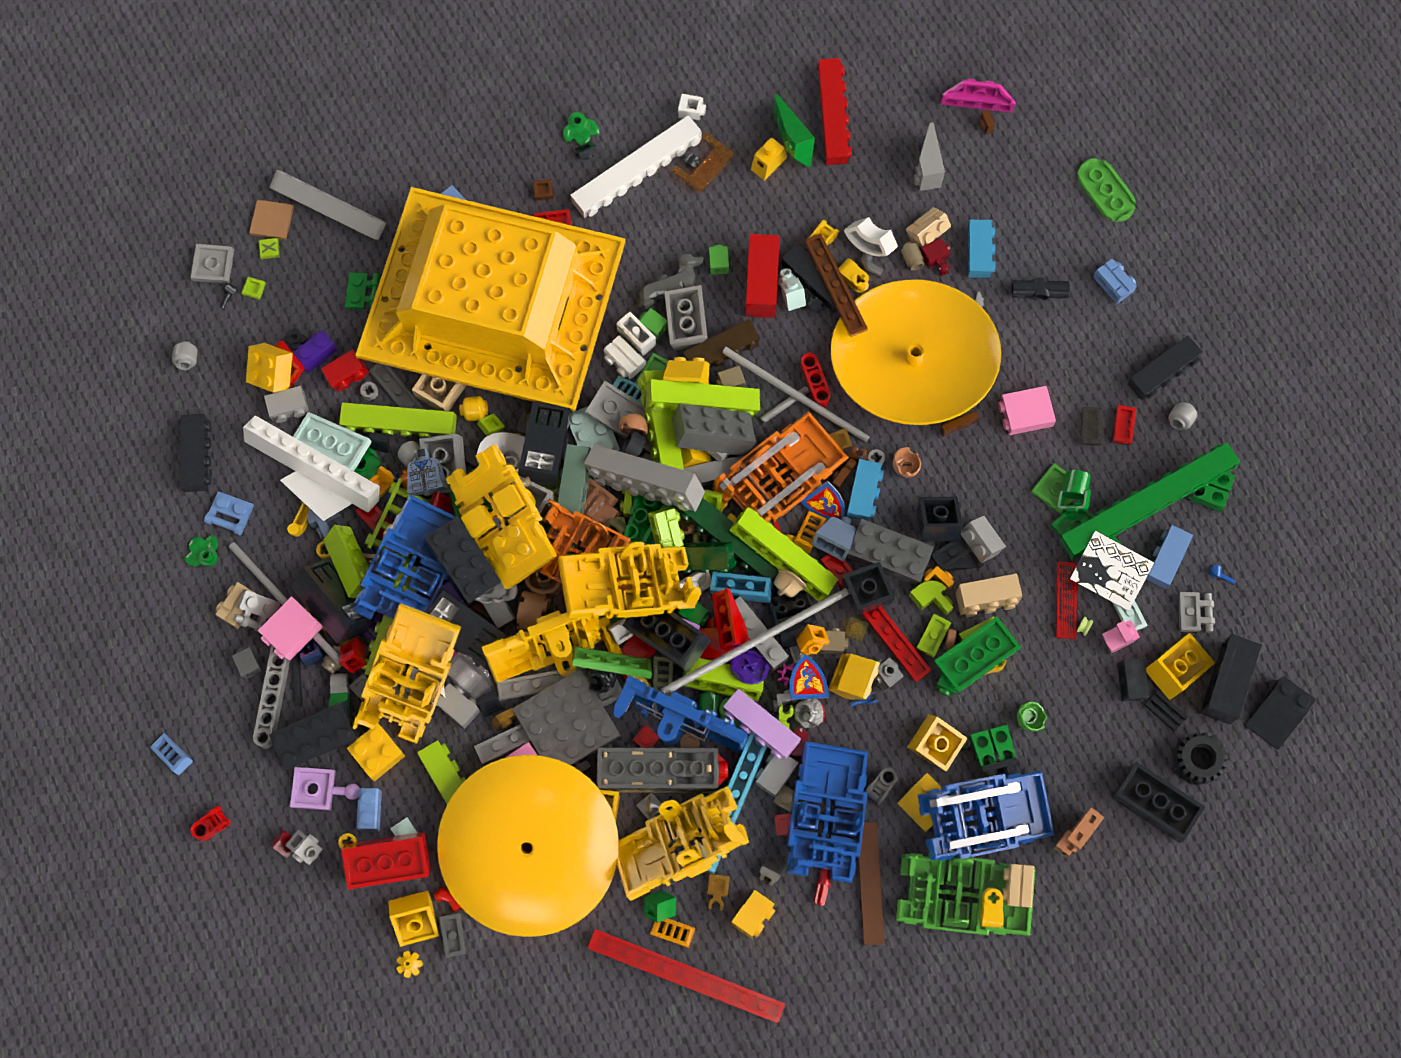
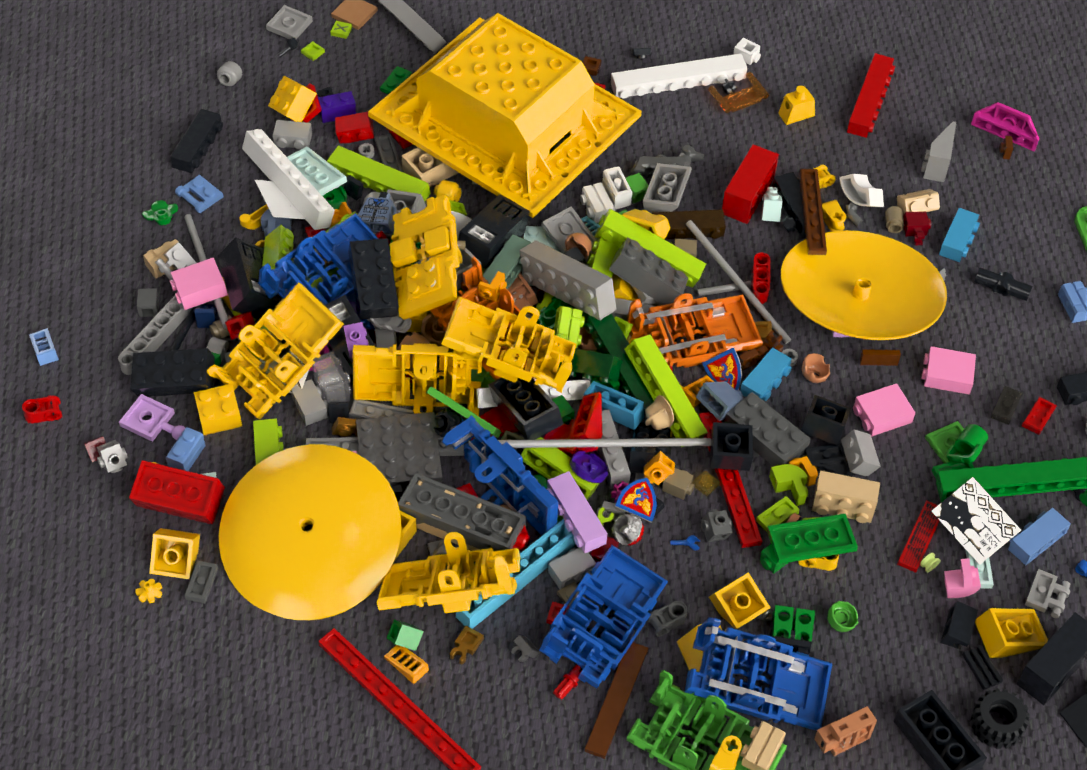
camera: 20 degrees right, 20 degrees down
(444, 895) = (213, 546): red arm -> none
(475, 627) = (355, 335): none -> medium lavender head
(580, 132) = (644, 38): green plate -> none
(584, 517) = (492, 290): none -> light orange bracket
(718, 259) = (717, 163): bright green brick -> none
(752, 915) = (487, 675): yellow brick -> none
(795, 135) = (828, 96): green wedge -> none
(853, 677) = (683, 514): yellow slope -> none
(984, 481) = (883, 410): none -> bright pink brick

